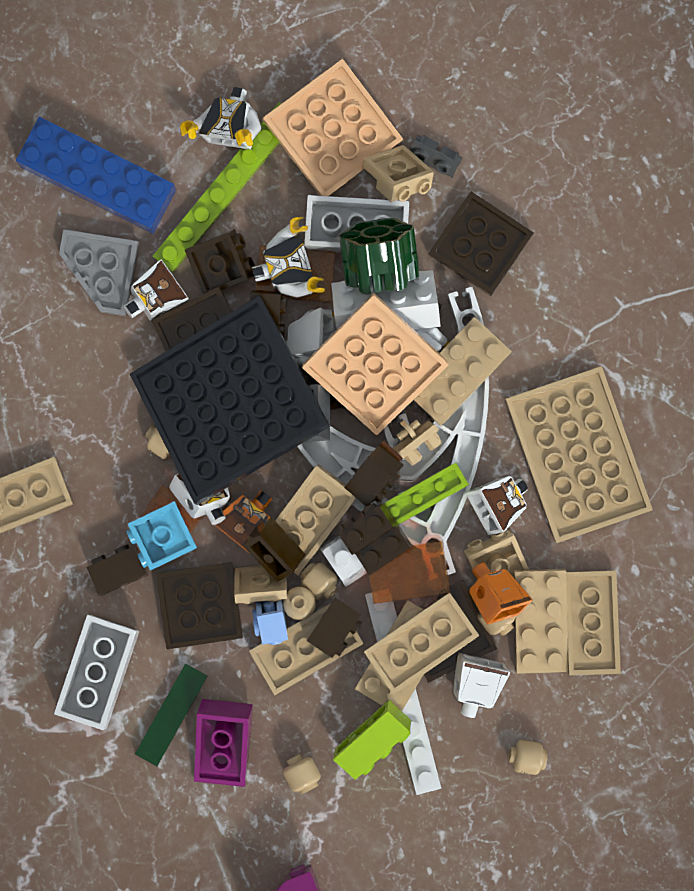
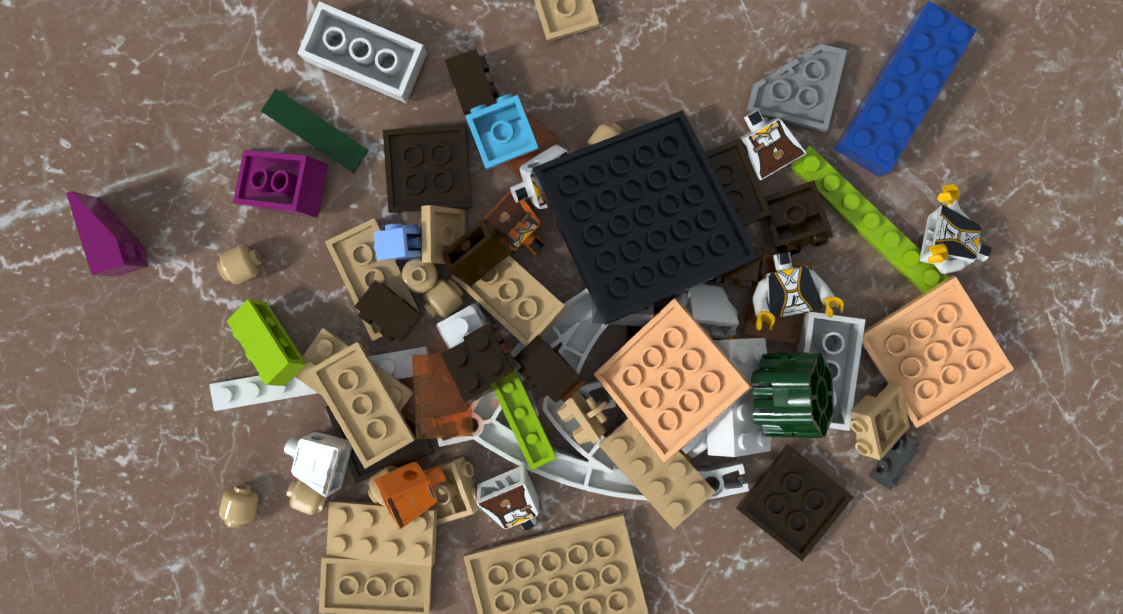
camera: 85 degrees right, 5 degrees up
(514, 693) = (305, 498): none -> tan head

